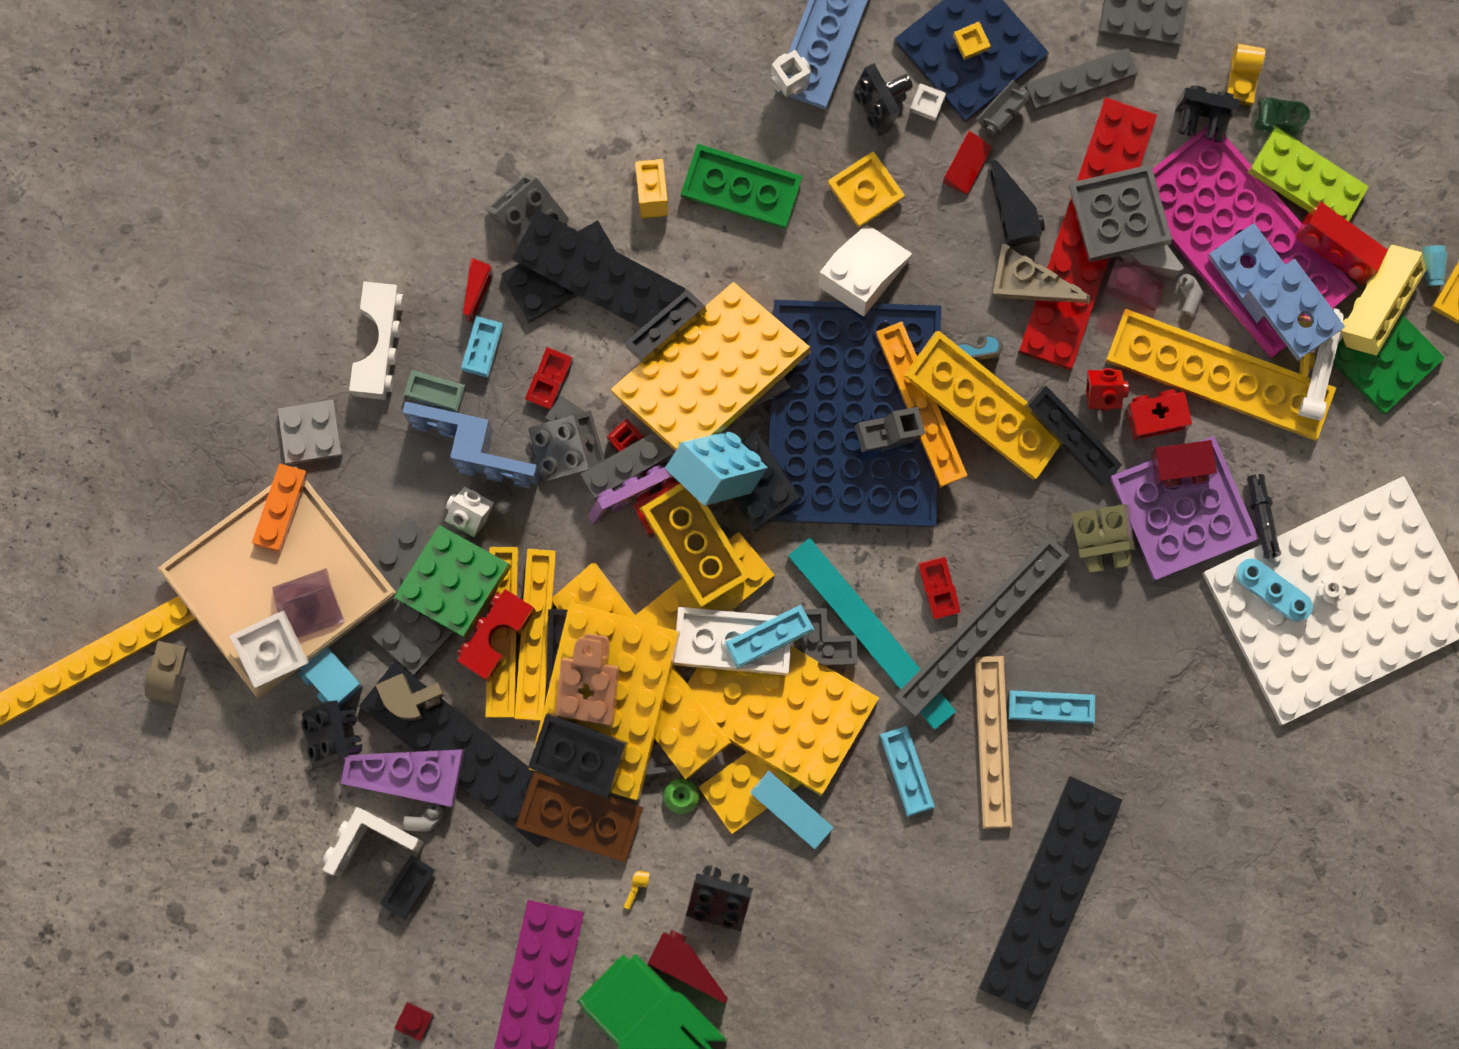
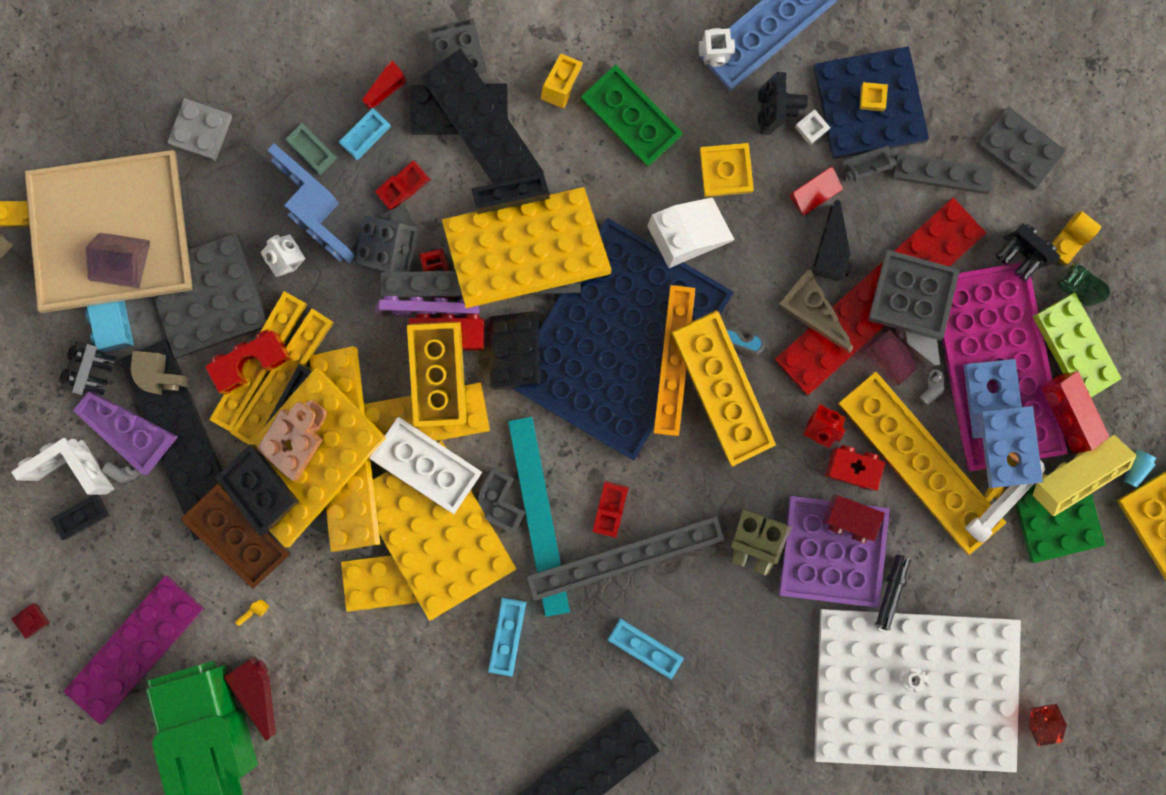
camera: 25 degrees right, 5 degrees up
(269, 649) = (63, 279): white plate -> none
(279, 508) = (141, 174): orange plate -> none
(371, 375) = (270, 110): white arch -> none
(452, 581) = (237, 303): green plate -> none
(690, 799) = (317, 565): bright green plate -> none
(716, 467) = (482, 325): medium azure brick -> none
(719, 900) = (305, 660): black plate -> none
(769, 636) = (454, 478): medium azure tile -> none
(791, 809) = (400, 619): medium azure tile -> none
(891, 431) = (637, 369): dark grey brick -> none
(993, 742) = (585, 651): tan tile -> none
(1073, 435) = (779, 448): black plate -> none
(1261, 587) = (860, 646): medium azure plate -> none

